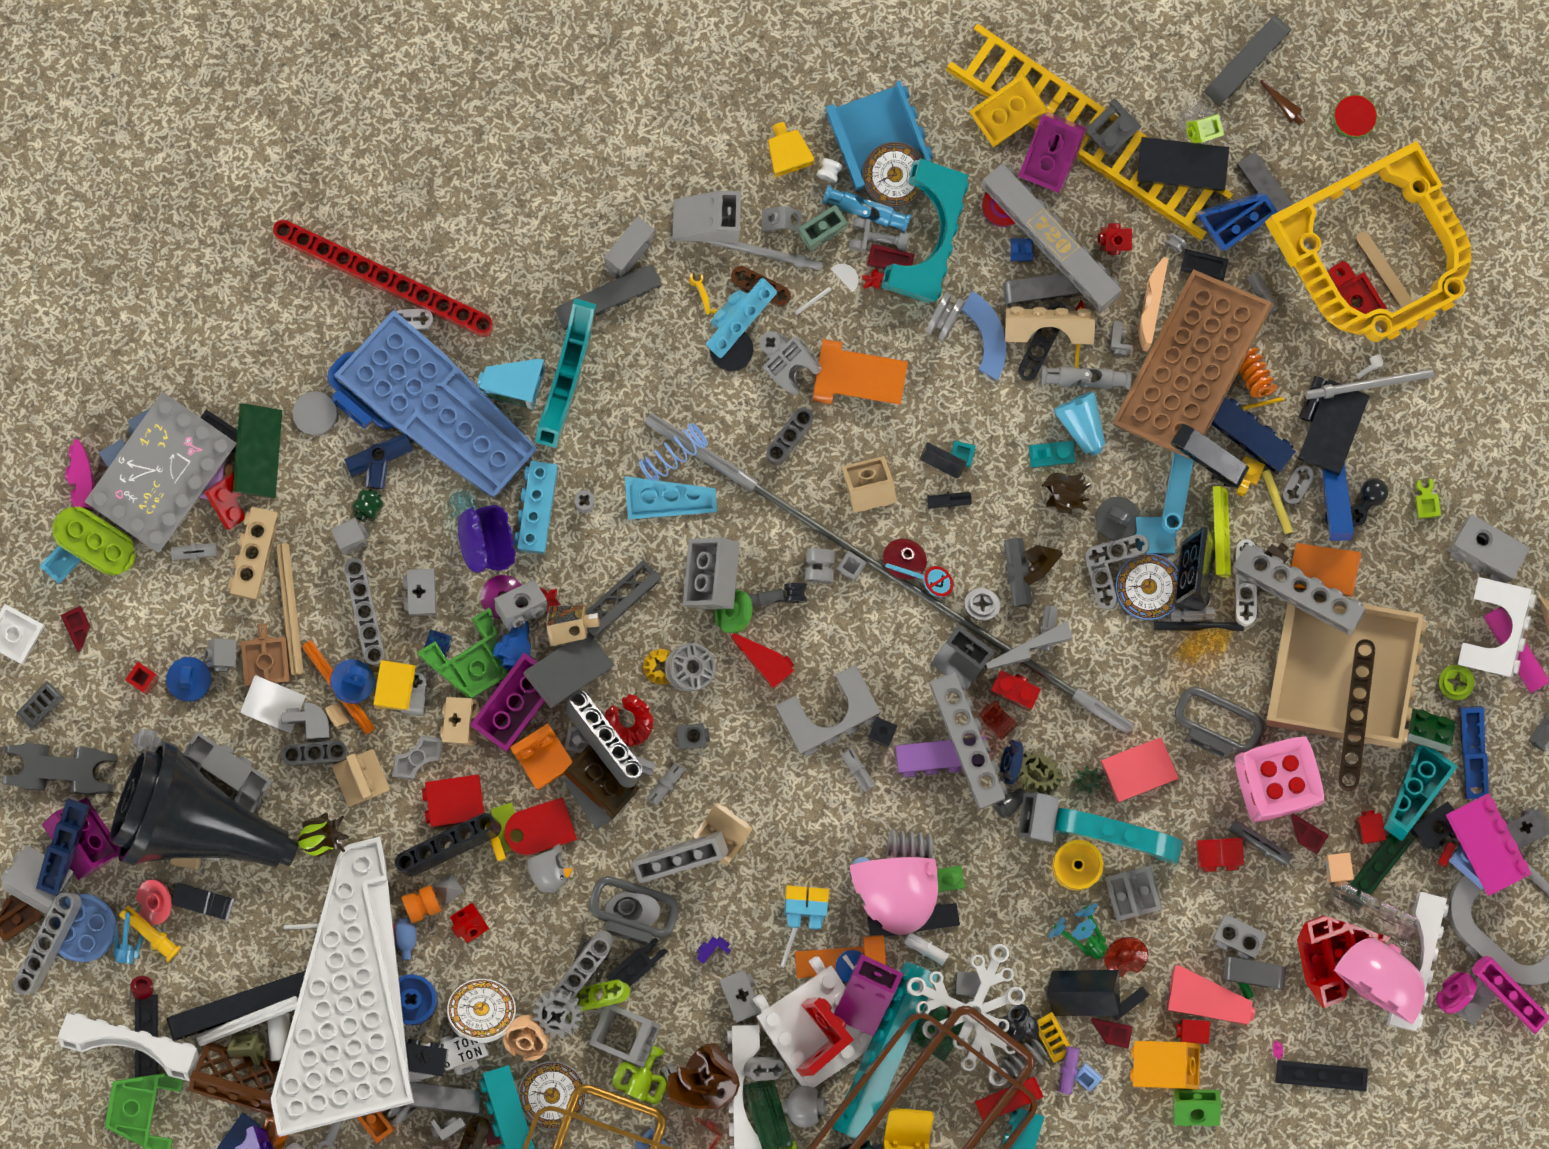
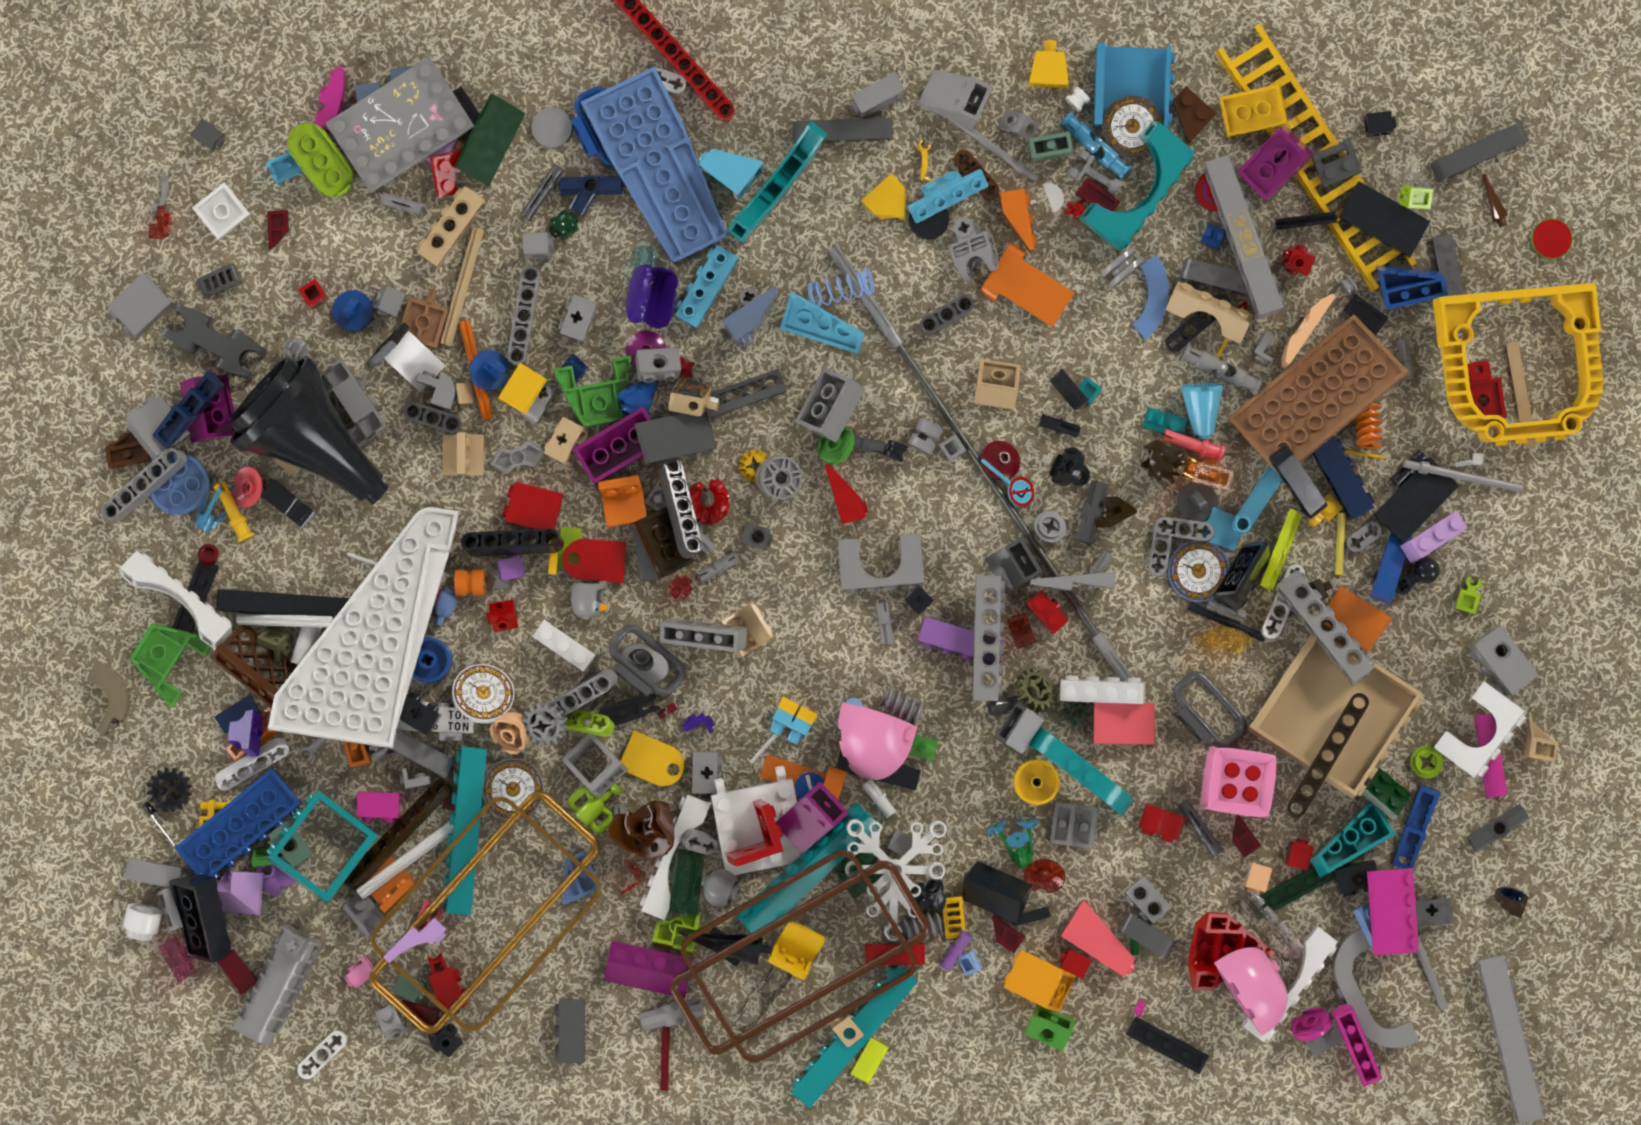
camera: 25 degrees right, 5 degrees up
(240, 698) = (388, 345): none -> black tile
(321, 835) = (409, 490): dark brown hair -> none
(332, 480) = (548, 184): none -> dark grey pin
(457, 872) = (510, 568): none -> medium lavender slope
(544, 927) = (564, 645): none -> white brick
(592, 524) = (746, 321): none -> sand blue slope
(637, 819) = (680, 587): none -> clear red gear
(674, 951) = (667, 710): none -> dark red tile
(679, 1006) = (650, 759): none -> yellow tile
(682, 346) = (887, 199): none -> yellow slope
(815, 307) = (1015, 212): none -> orange slope
(948, 138) = (1192, 113): none -> reddish brown wing
(975, 536) = (1068, 467): none -> black tile
(1011, 762) = (1017, 671): dark blue tile -> none
(1100, 463) = (1203, 447): none -> coral pin
(1101, 747) = (1102, 691): none -> white brick
(1106, 197) = (1306, 220): none -> black axle
(1116, 485) = (1207, 472): none -> clear orange brick
(1137, 72) = (1379, 123): none -> black brick
(1367, 455) = (1433, 537): none -> lavender brick
(1446, 854) = (1355, 903): red tile -> none

